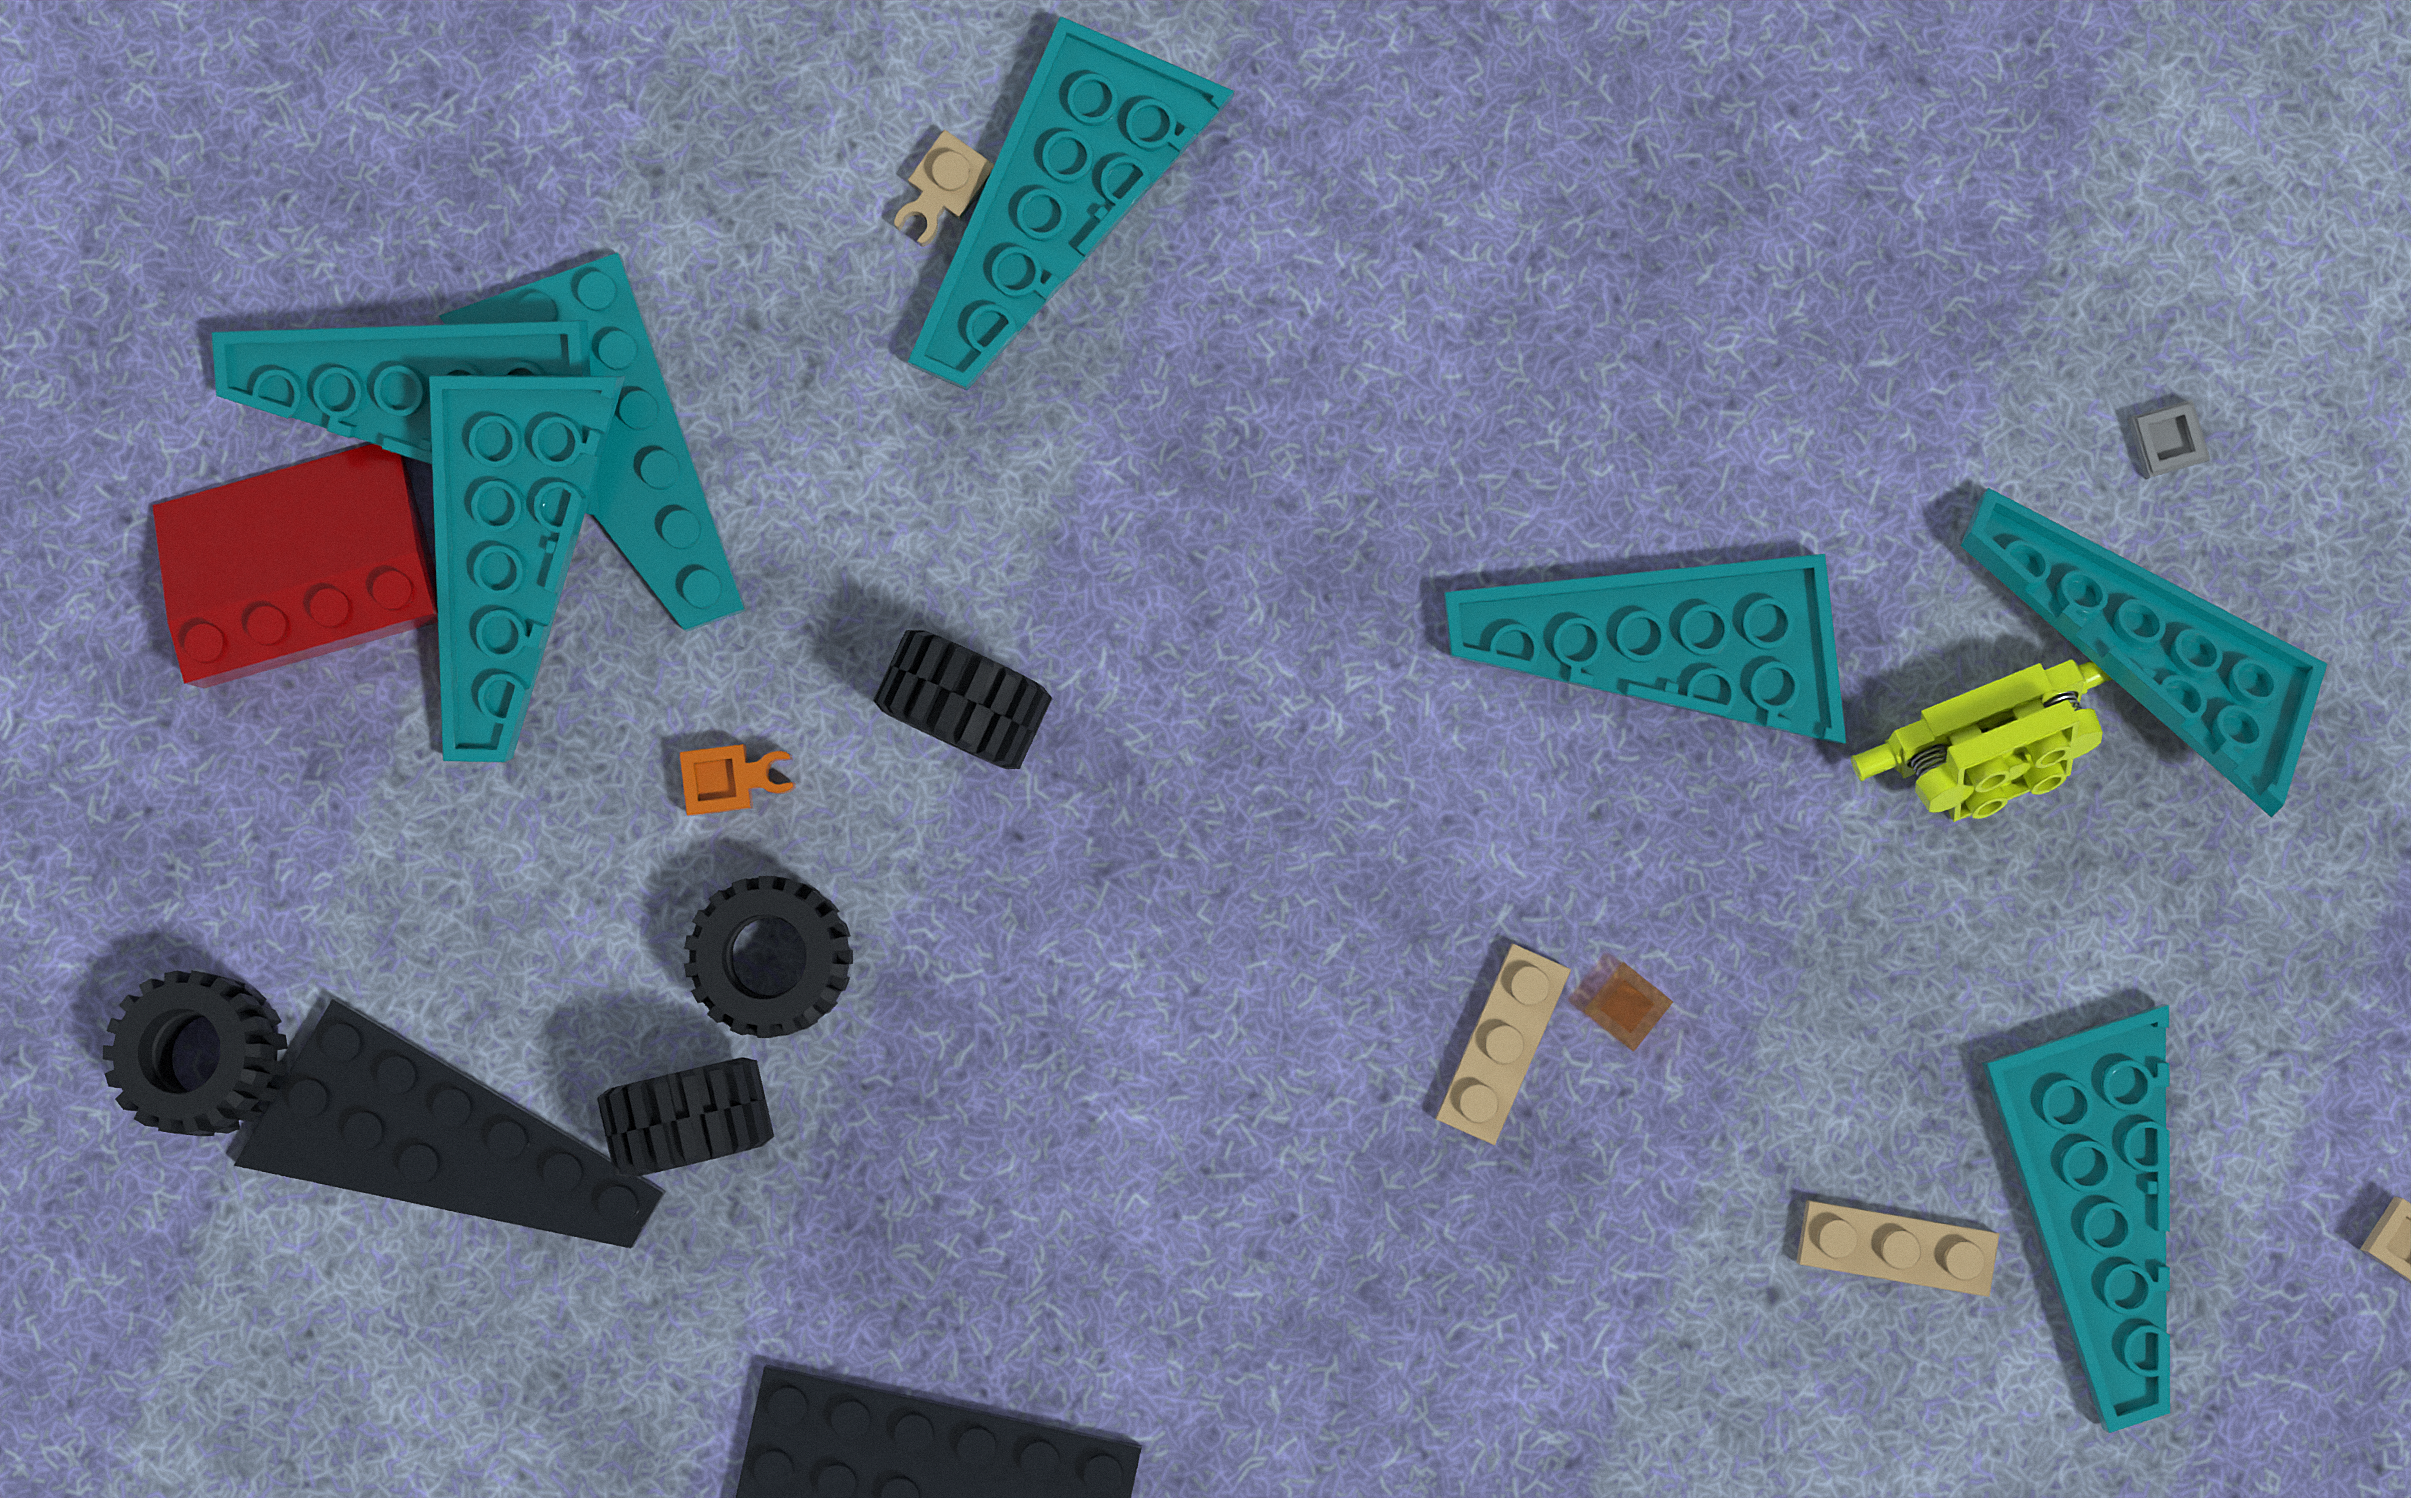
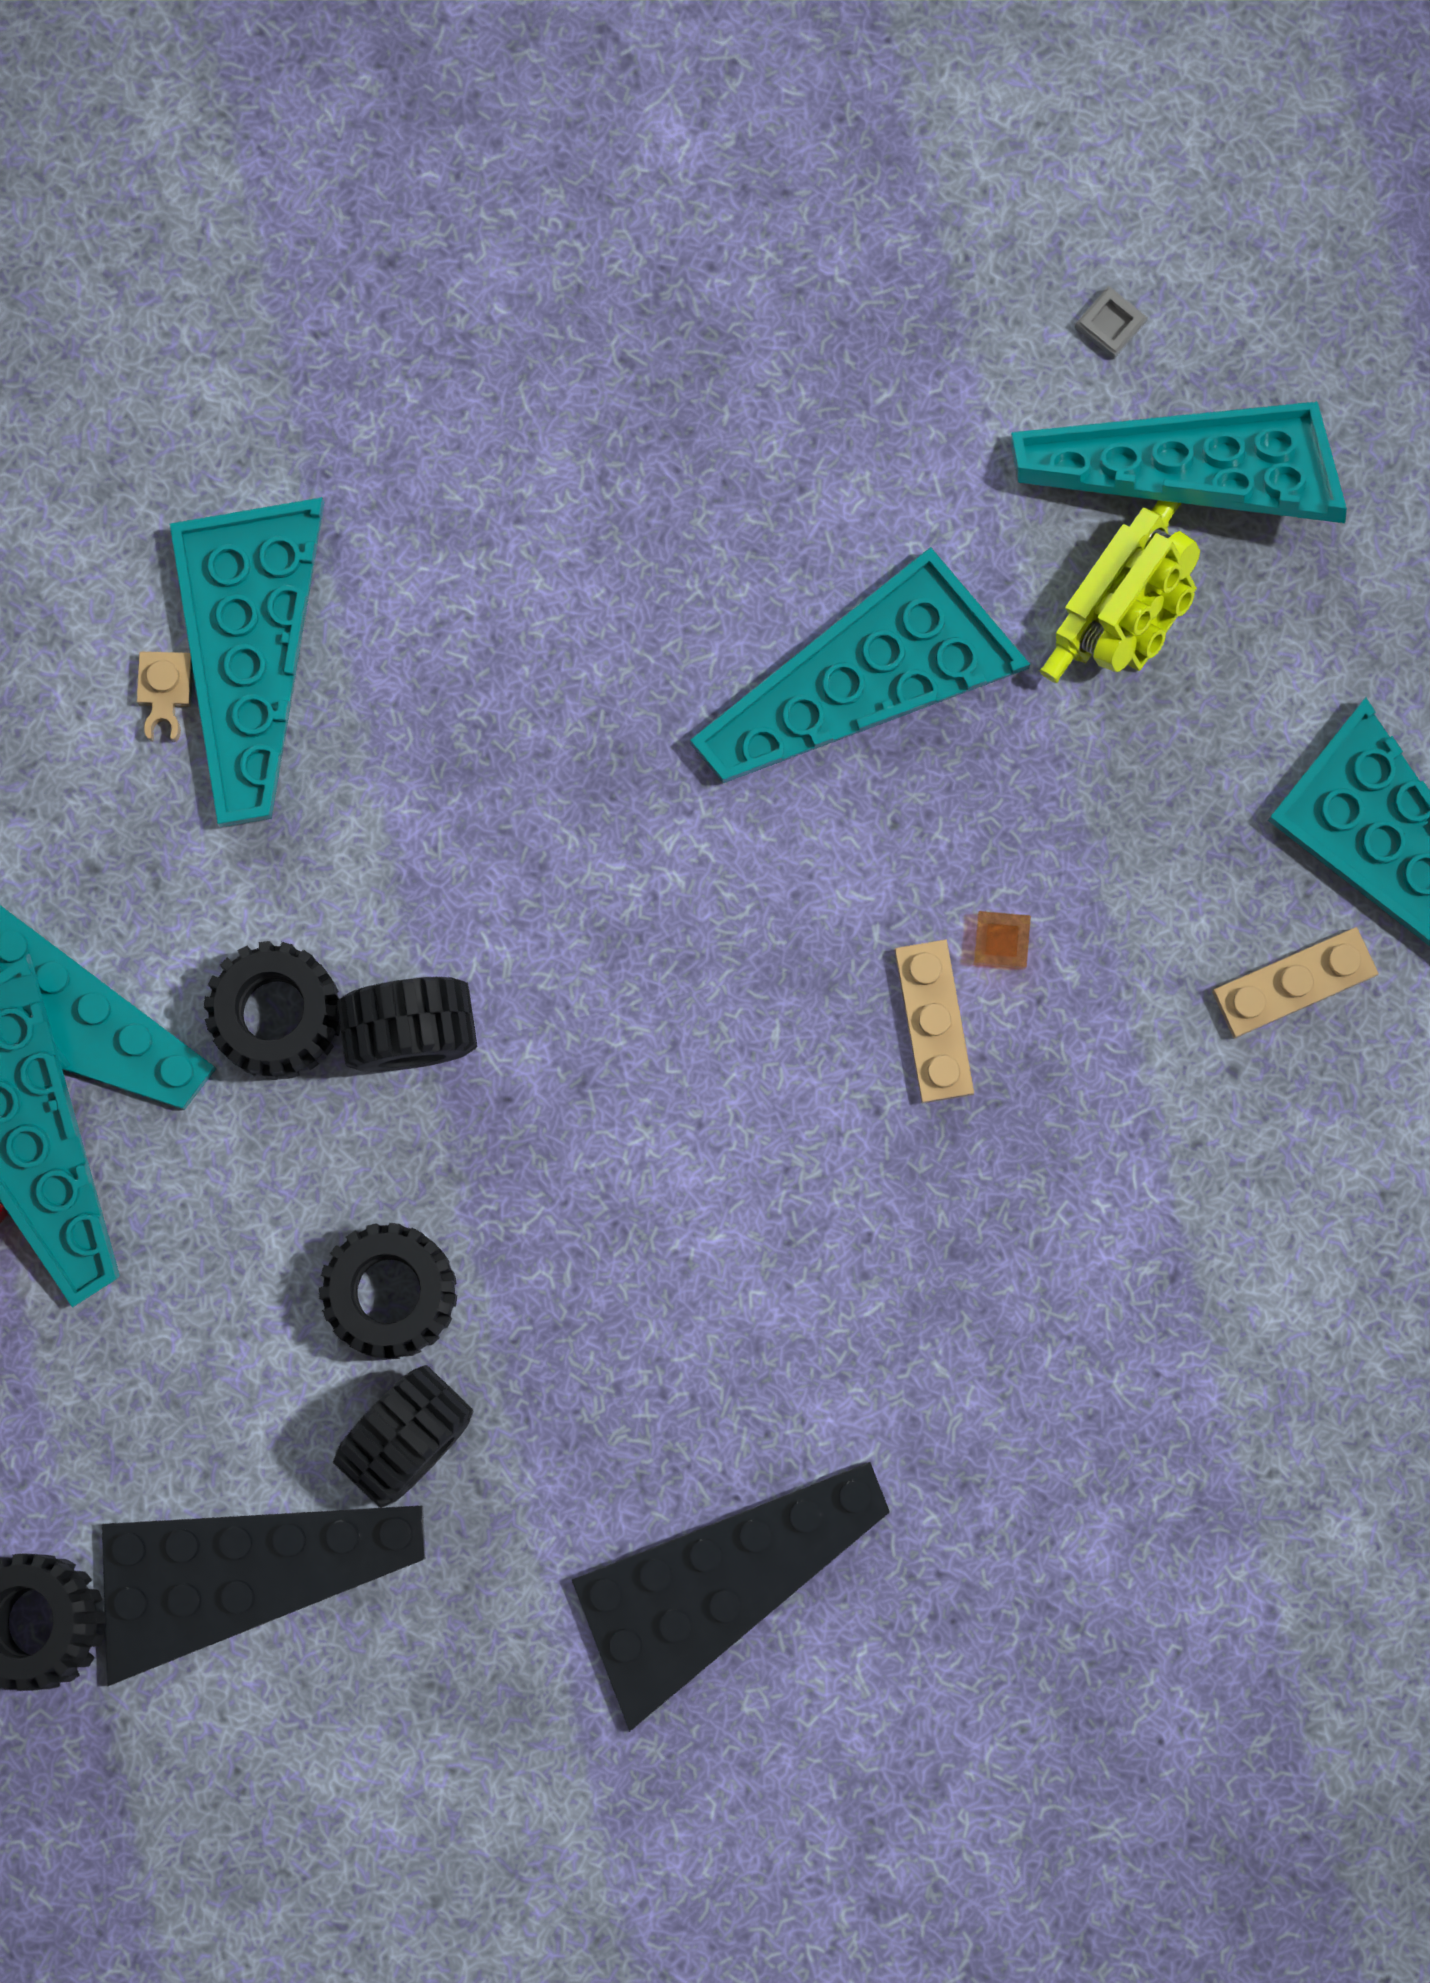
camera: 25 degrees left, 5 degrees down
(723, 779) = (277, 1193): orange plate -> none
(805, 548) = (241, 979): none -> black tyre

